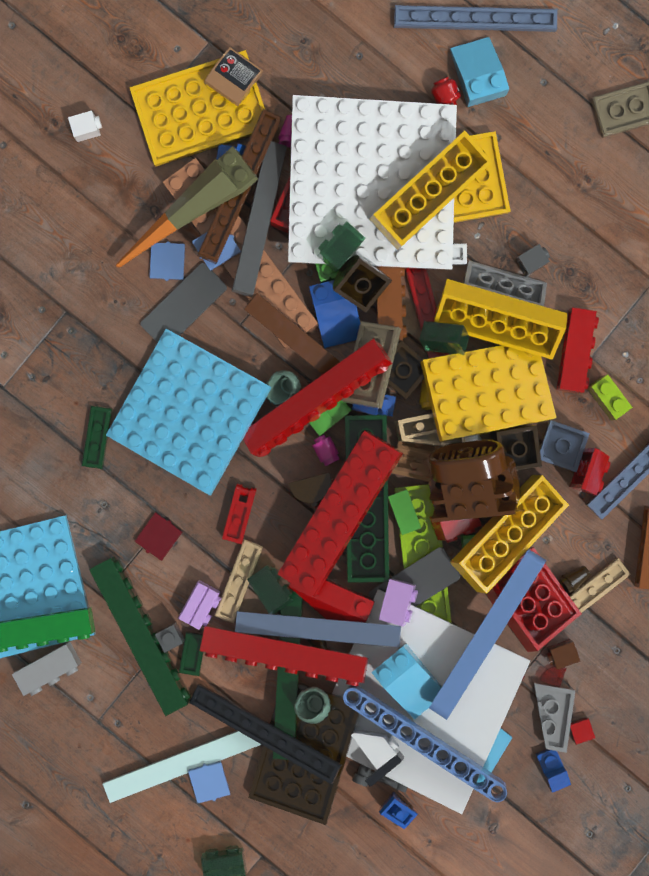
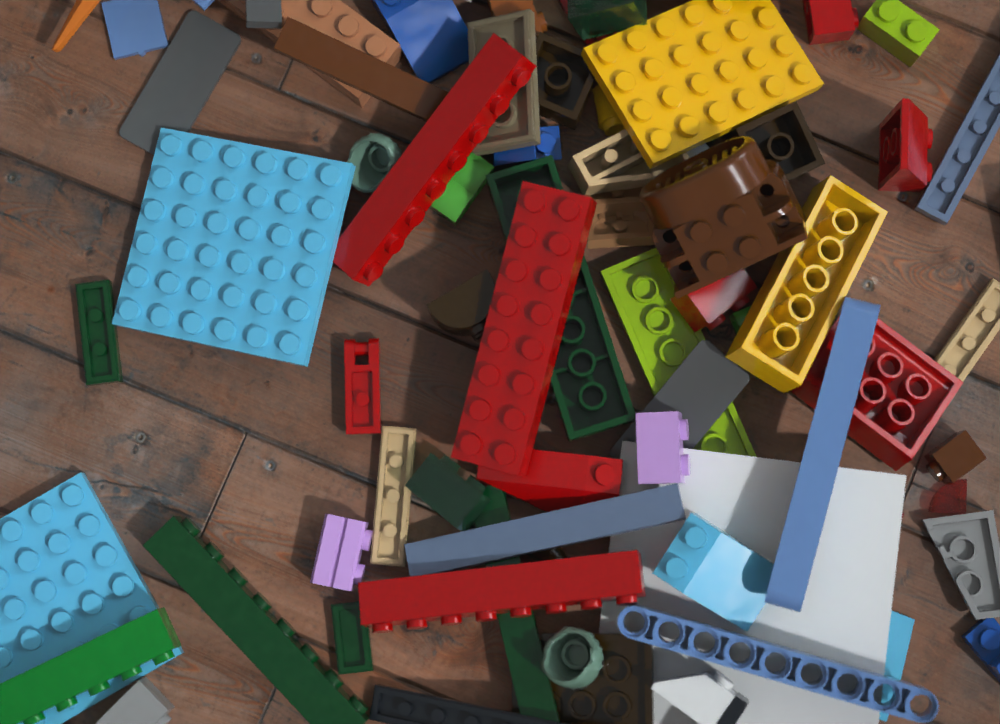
camera: 15 degrees left, 5 degrees down
(158, 536) = (242, 463): dark red piece -> none
(170, 637) = (307, 618): dark grey brick -> none
(325, 450) = (472, 243): dark pink brick -> none
(404, 512) = (627, 303): bright green tile -> none
(563, 445) = (849, 126): sand blue plate -> none
(573, 580) = (934, 331): dark brown cone -> none

